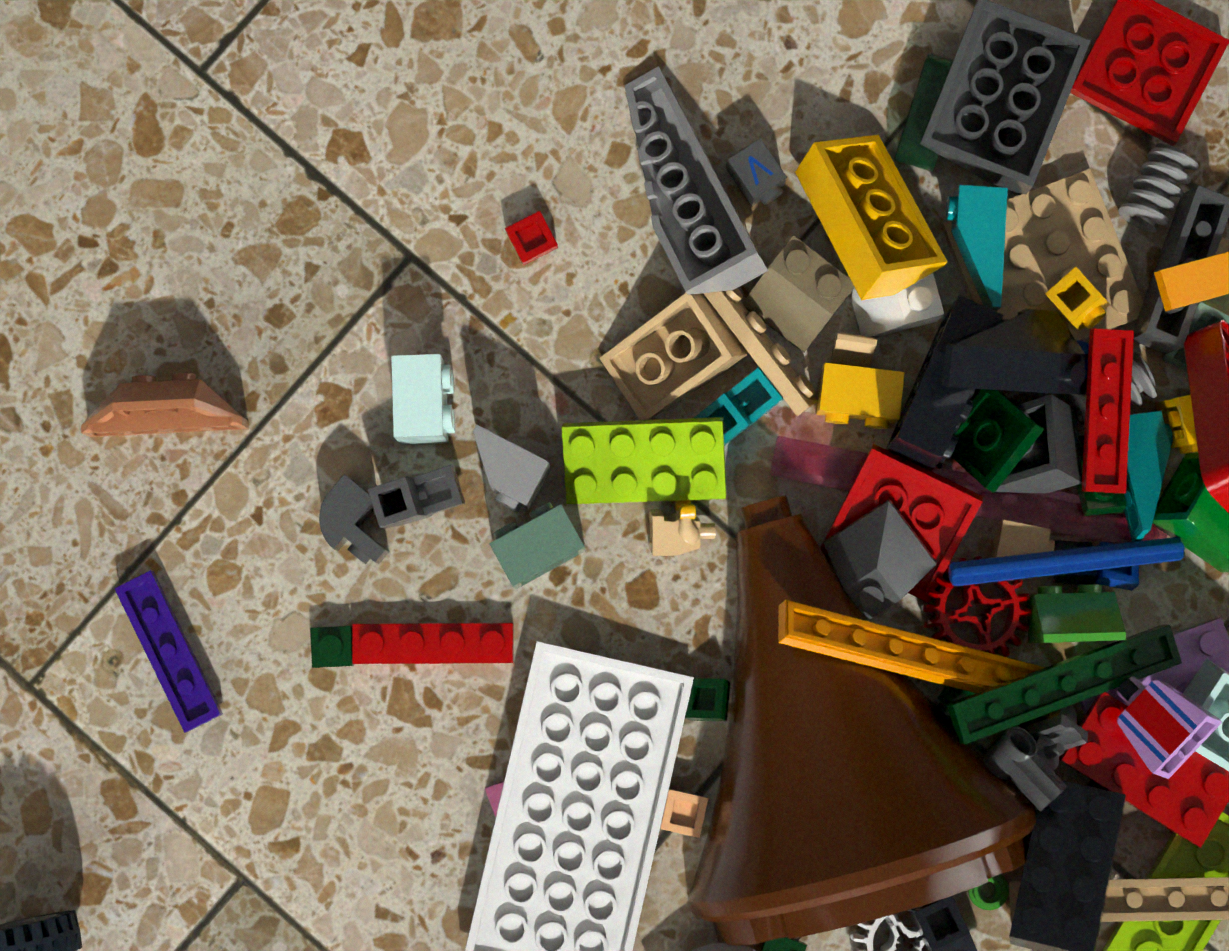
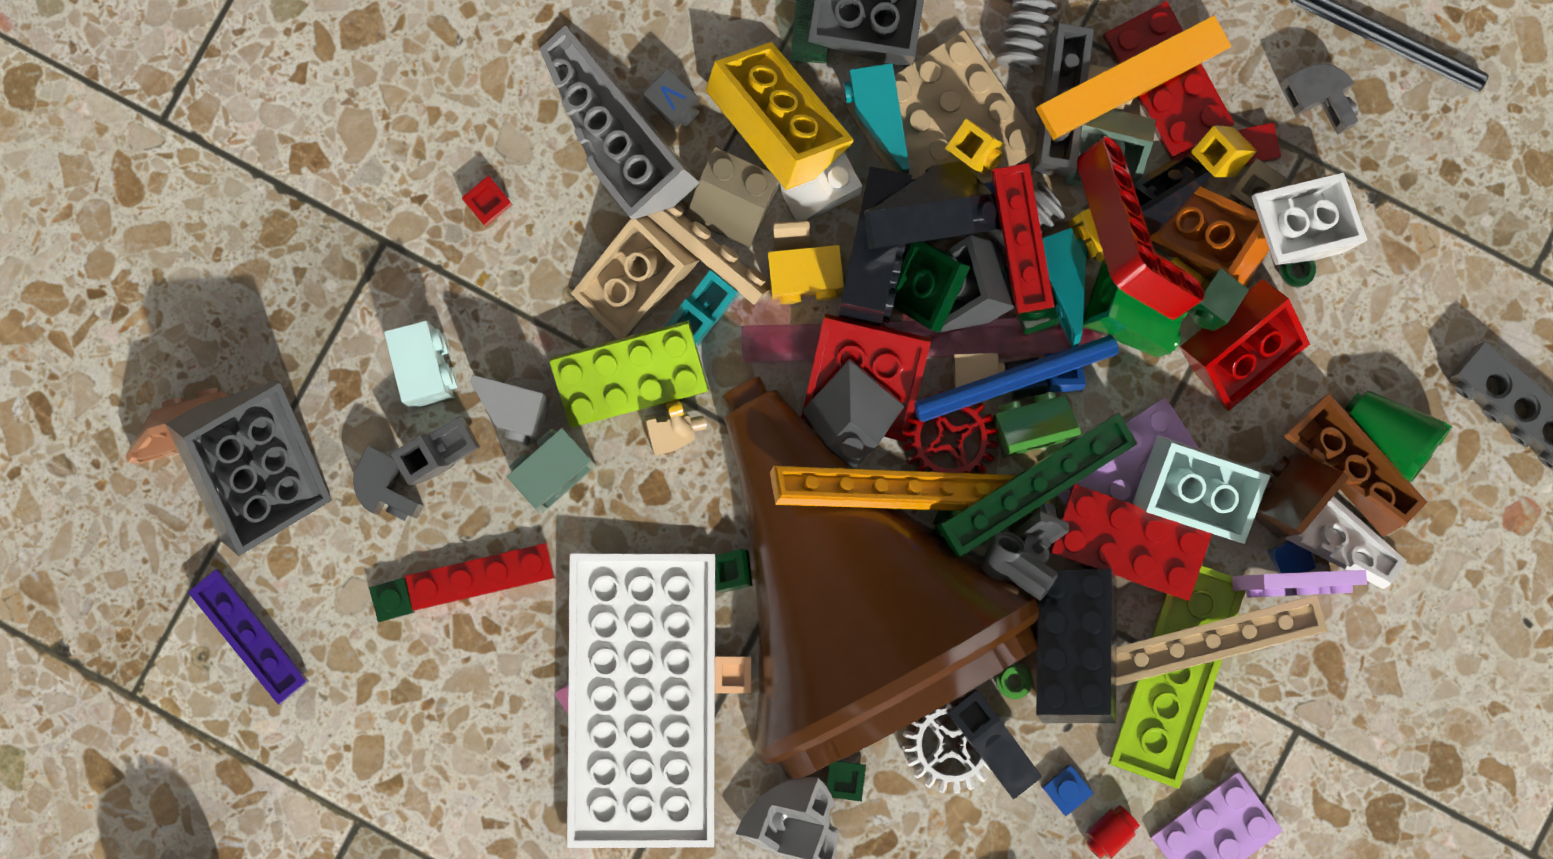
camera: 10 degrees left, 0 degrees up
(212, 466) = (249, 464): none -> dark grey slope
(1163, 724) = (1129, 500): torso -> none

